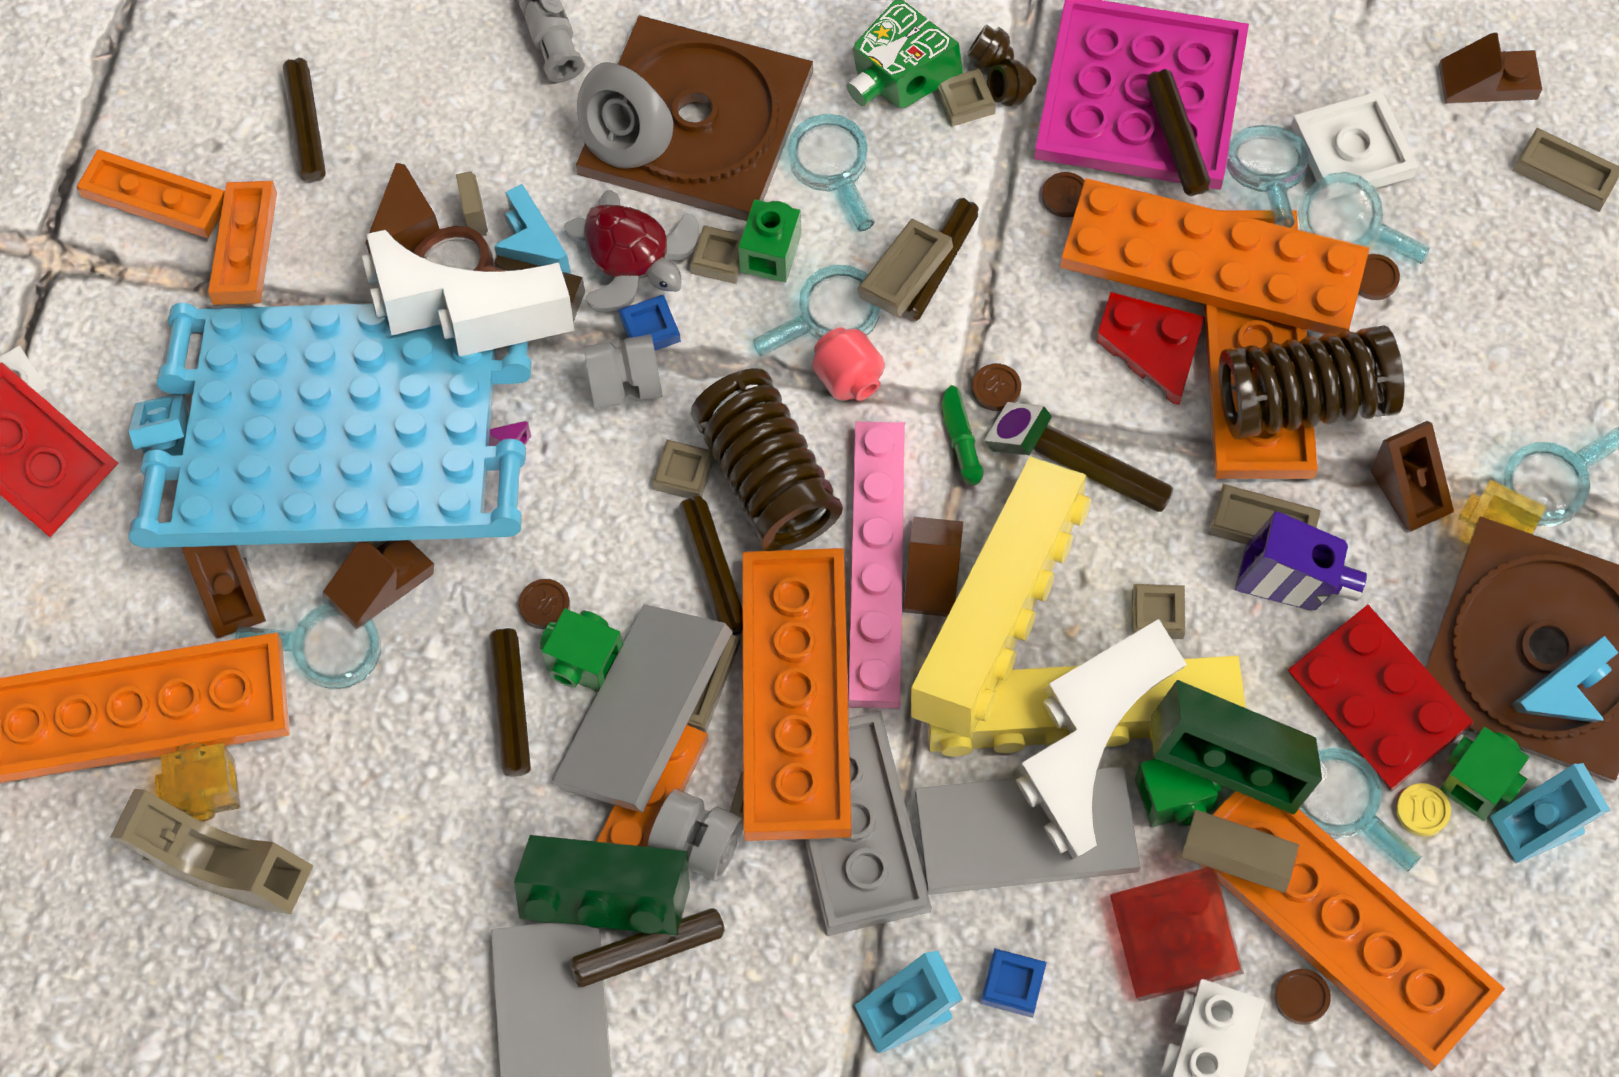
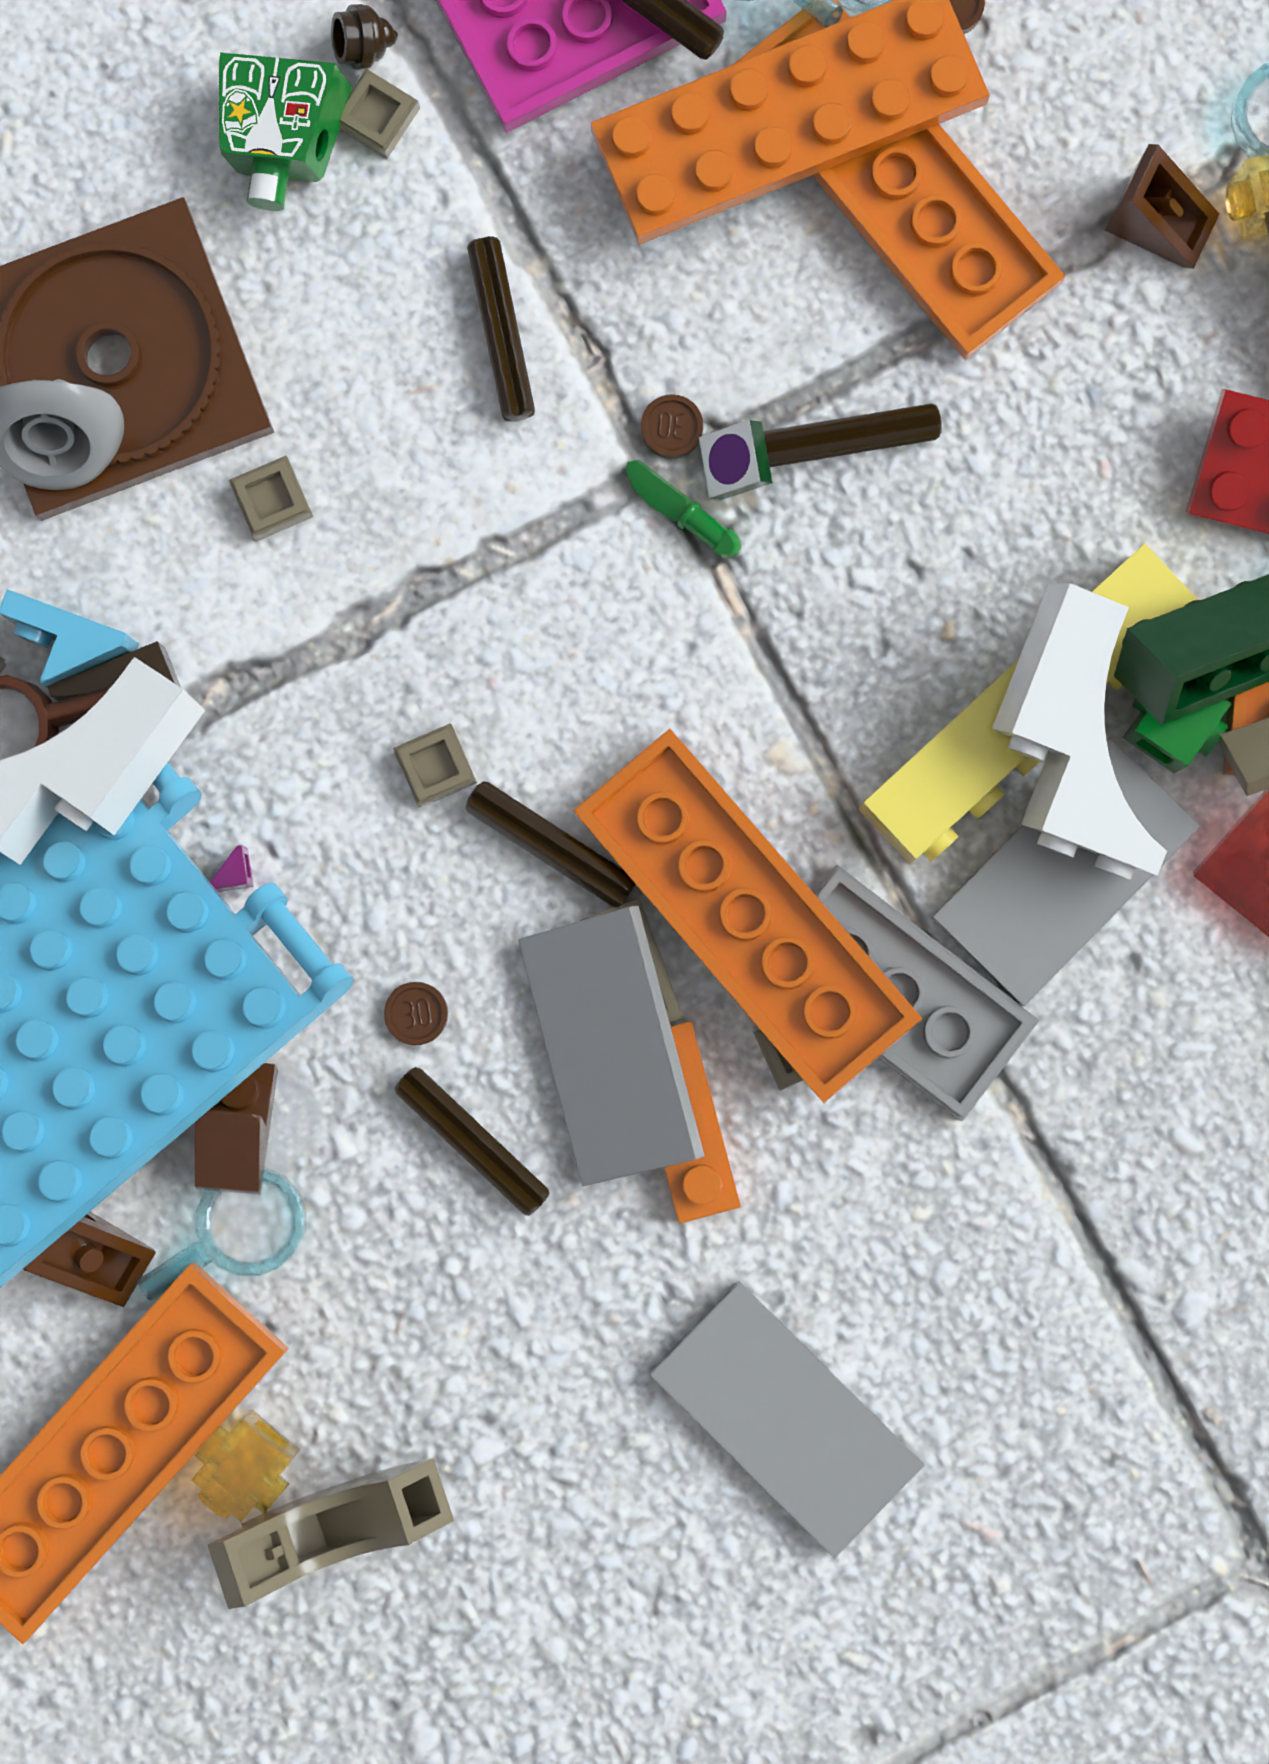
camera: 40 degrees left, 20 degrees up
(580, 649) = (498, 1037): green brick -> none
(602, 885) = (726, 1257): dark green brick -> none
(622, 371) = (290, 713): light grey wheel -> none
(631, 247) = (178, 567): animal -> none
(645, 948) = (811, 1275): dark brown axle -> none
(651, 318) = (266, 635): blue tile -> none
(679, 827) = (747, 1140): light grey wheel -> none
(765, 458) = (541, 738): dark brown piece -> none
(770, 240) = (319, 465): green brick -> none
(826, 303) = (441, 466): piece -> none
(830, 156) = (292, 297): piece -> none
(848, 364) = (511, 524): coral head -> none
(877, 566) = (706, 710): bright pink plate -> none
(905, 267) = (482, 369): dark tan tile -> none
(909, 1003) = (1097, 1131): medium azure slope -> none
(933, 566) = (765, 669): reddish brown slope -> none
(999, 598) = (873, 663): light yellow brick -> none
(1010, 82) = (412, 61): dark brown plate -> none
(1013, 982) = (1167, 1029): blue tile -> none
(1062, 193) = (569, 149): reddish brown piece -> none
(1151, 340) = (788, 253): red wing -> none
(1162, 603) = (1017, 547): dark tan tile -> none
(1244, 512) = (1047, 369): dark tan tile -> none
(1297, 565) = (1124, 399): dark purple torso -> none
(1330, 387) = (999, 196): dark brown piece -> none

